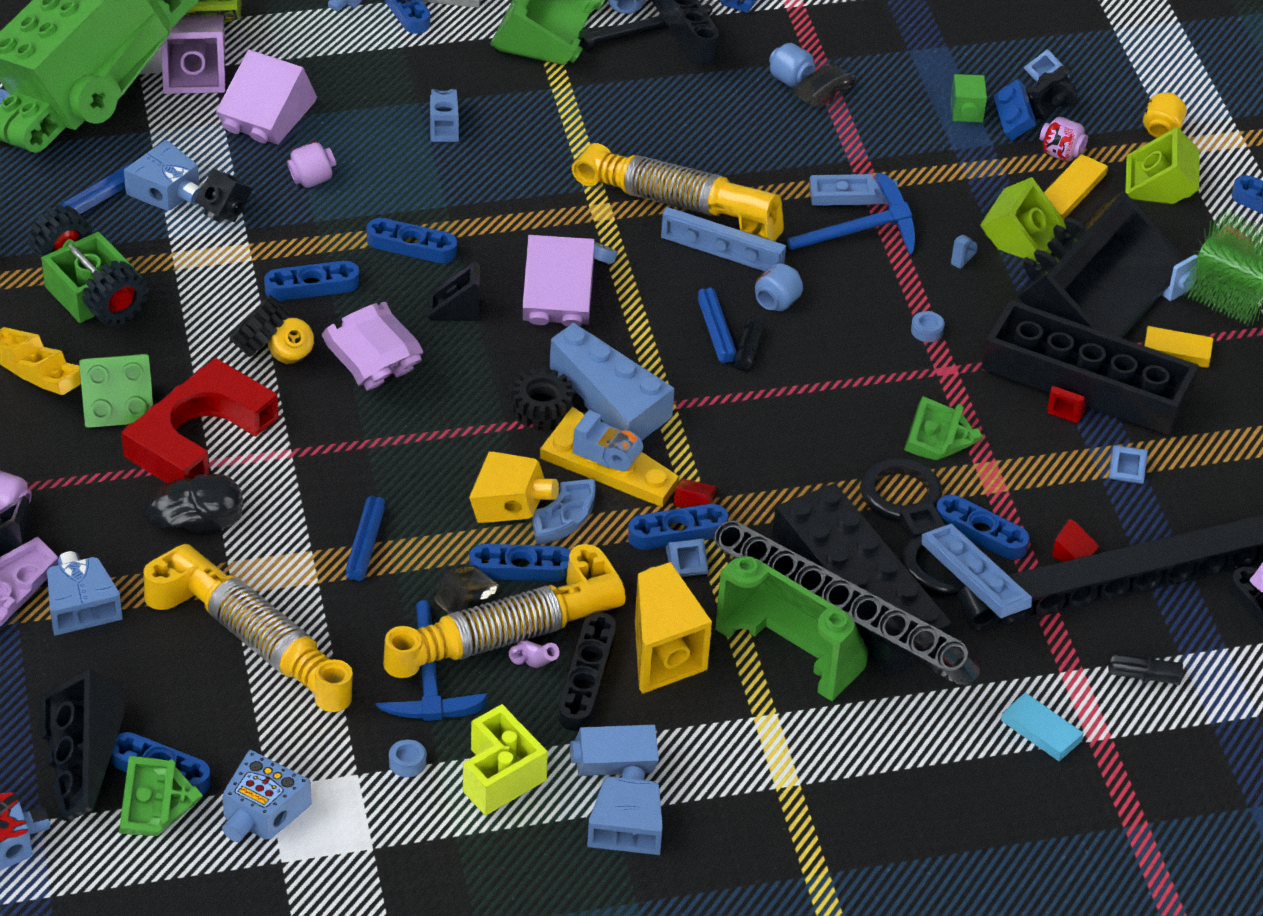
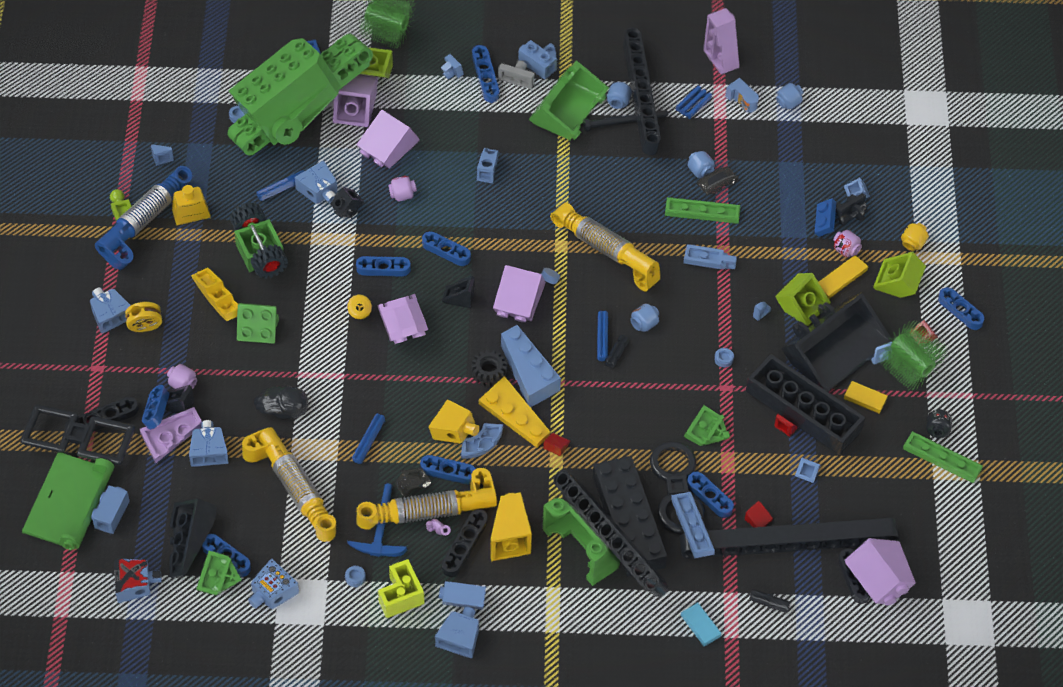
camera: 15 degrees right, 10 degrees up
(211, 391) = (308, 331): red arch -> none
(259, 326) = (343, 295): black tyre -> none
(605, 443) = (512, 406): medium blue leg -> none
(653, 521) = (525, 457): blue beam -> none
(688, 557) = (539, 484): medium blue slope -> none
(721, 240) = (622, 280): medium blue tile -> none
(814, 129) = (702, 210): none -> bright green tile
(898, 213) = (729, 279): blue piece -> none
(968, 98) = (800, 204): bright green brick -> none

